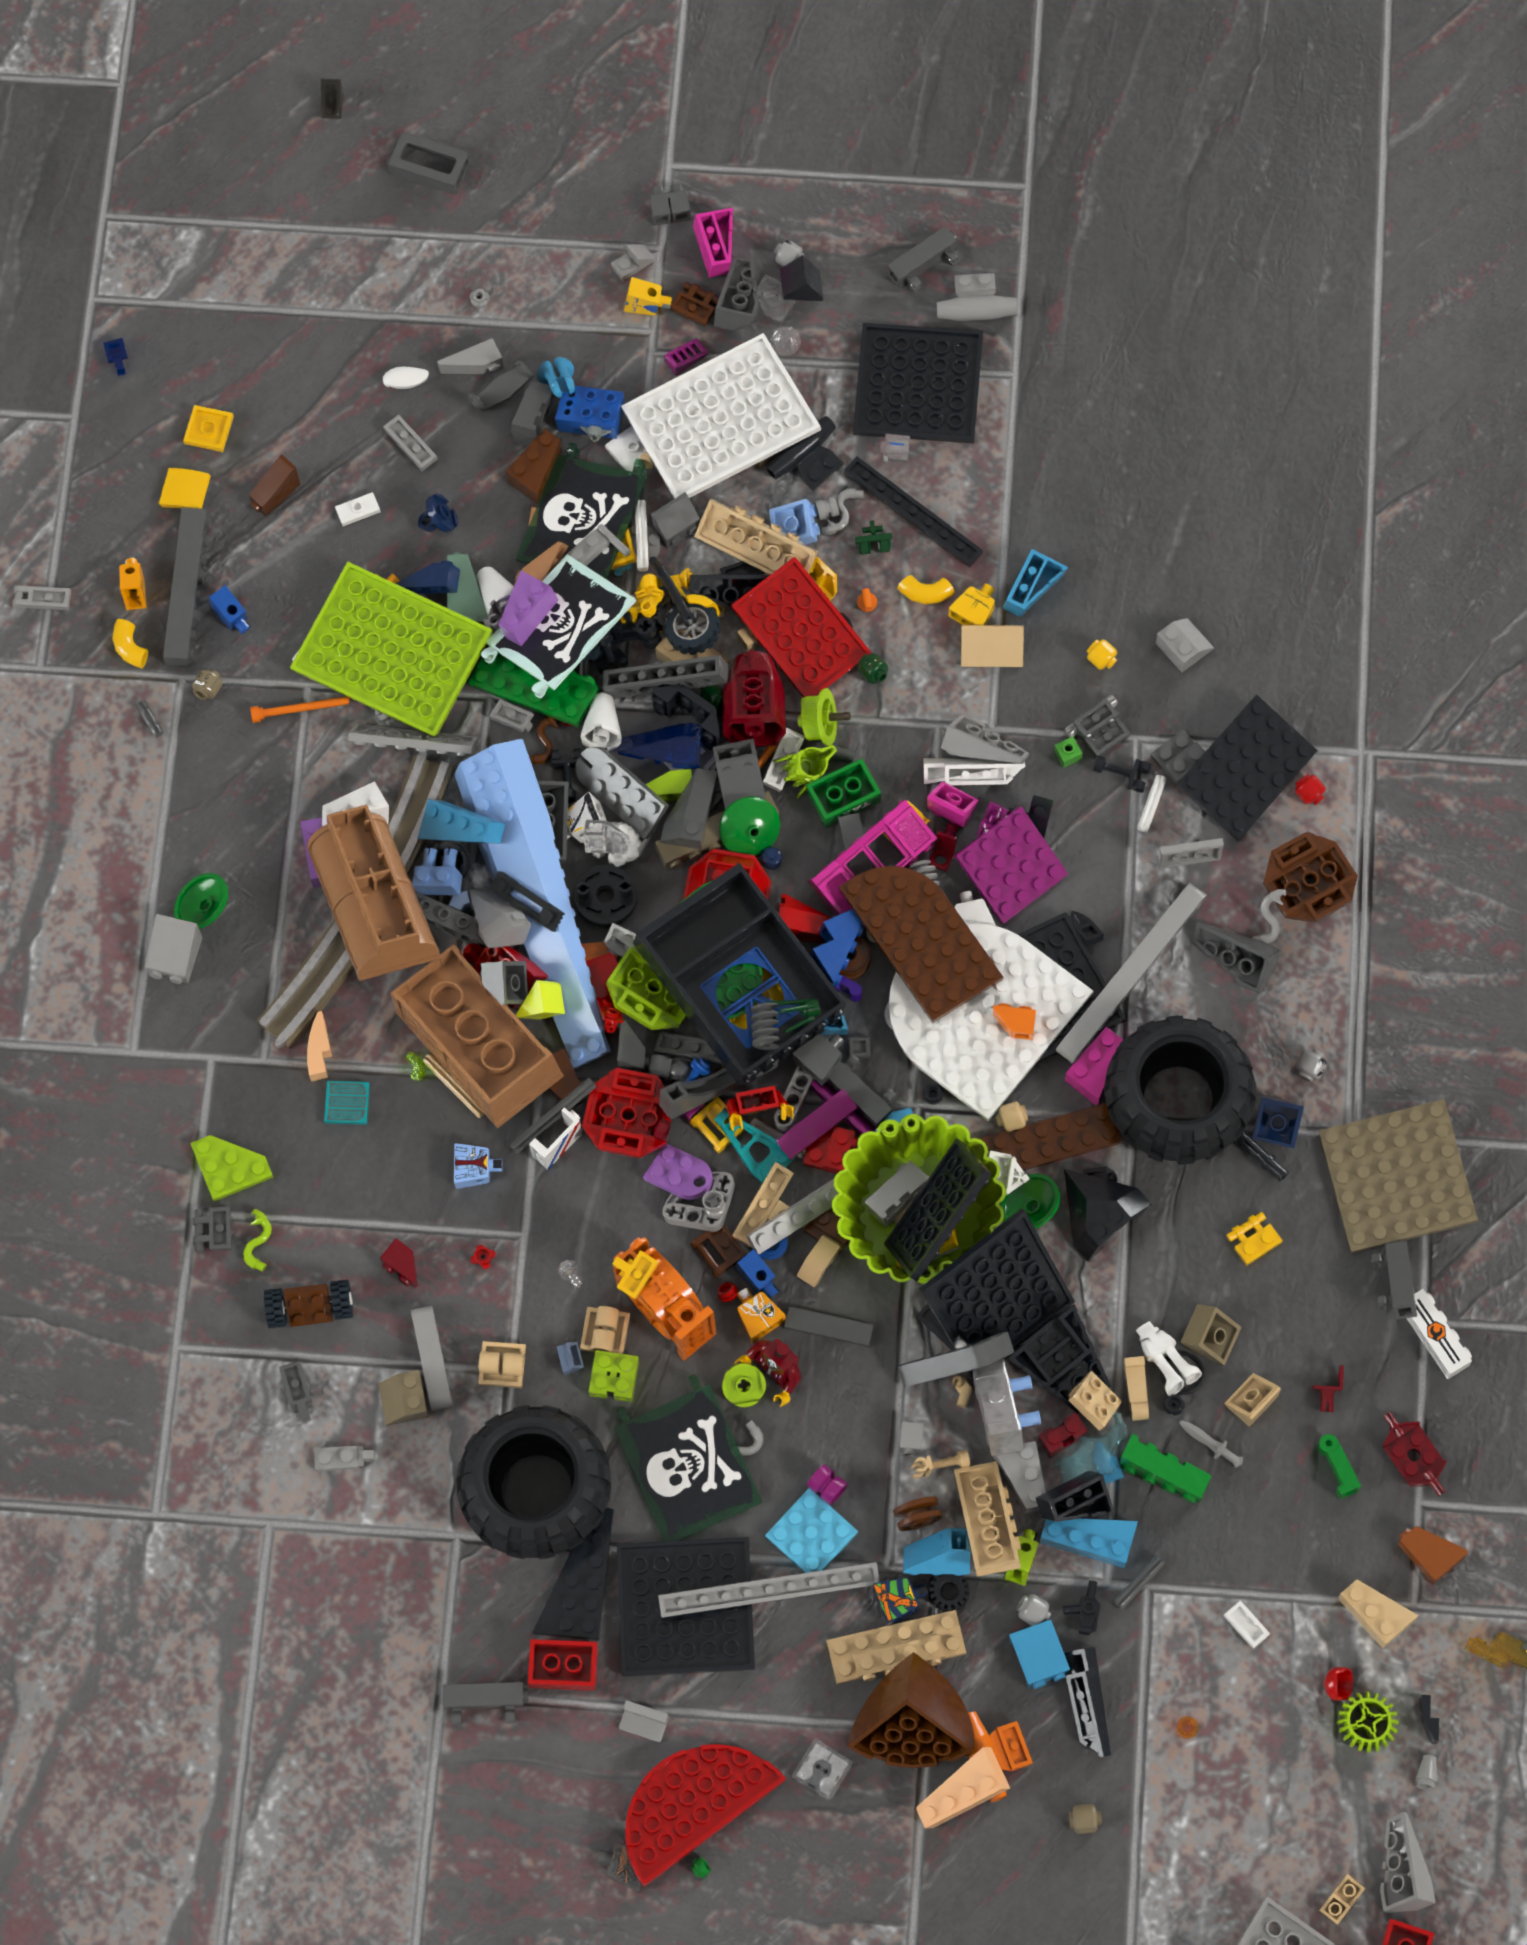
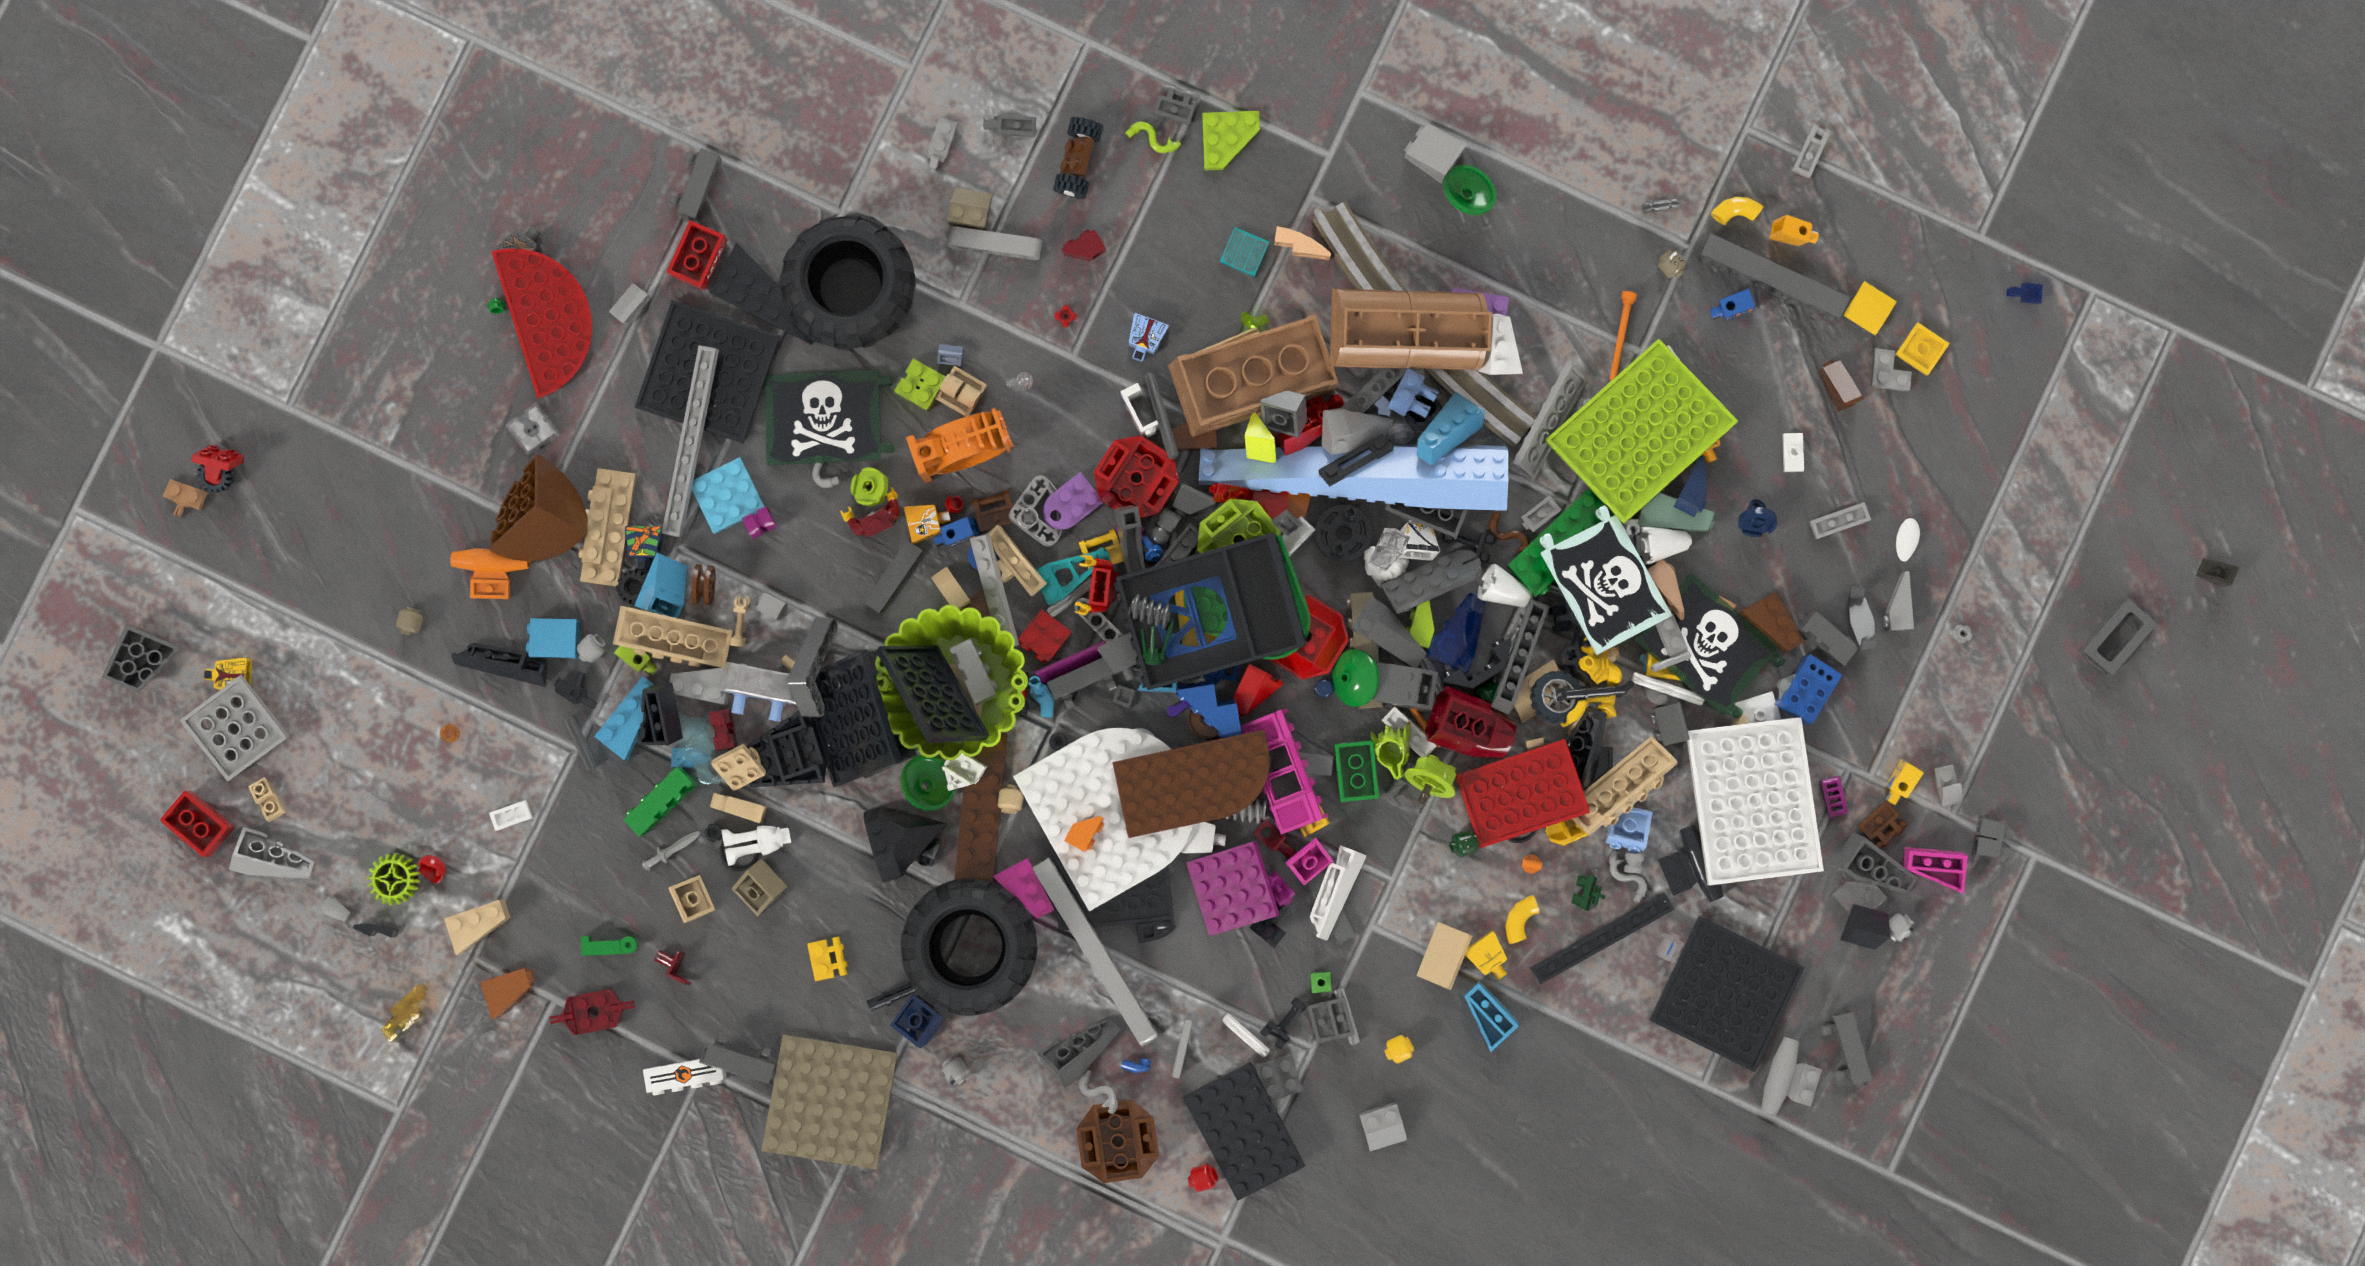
camera: 110 degrees right, 15 degrees up
(246, 455) = (1885, 376): none -> light grey plate
(502, 1364) = (966, 298): tan plate -> none
(526, 608) = (1630, 558): medium lavender wedge -> none
(557, 384) = (1840, 673): dark azure piece -> none
(635, 1273) = (975, 420): yellow hinge -> none
(785, 341) = (1812, 890): clear plate -> none
(816, 1124) = (1064, 631): magenta slope -> none
(968, 1787) = (464, 534): light nougat wedge -> none
(969, 739) = (1360, 904): light grey wedge -> none
(1230, 893) = (1136, 1067): none -> blue arm

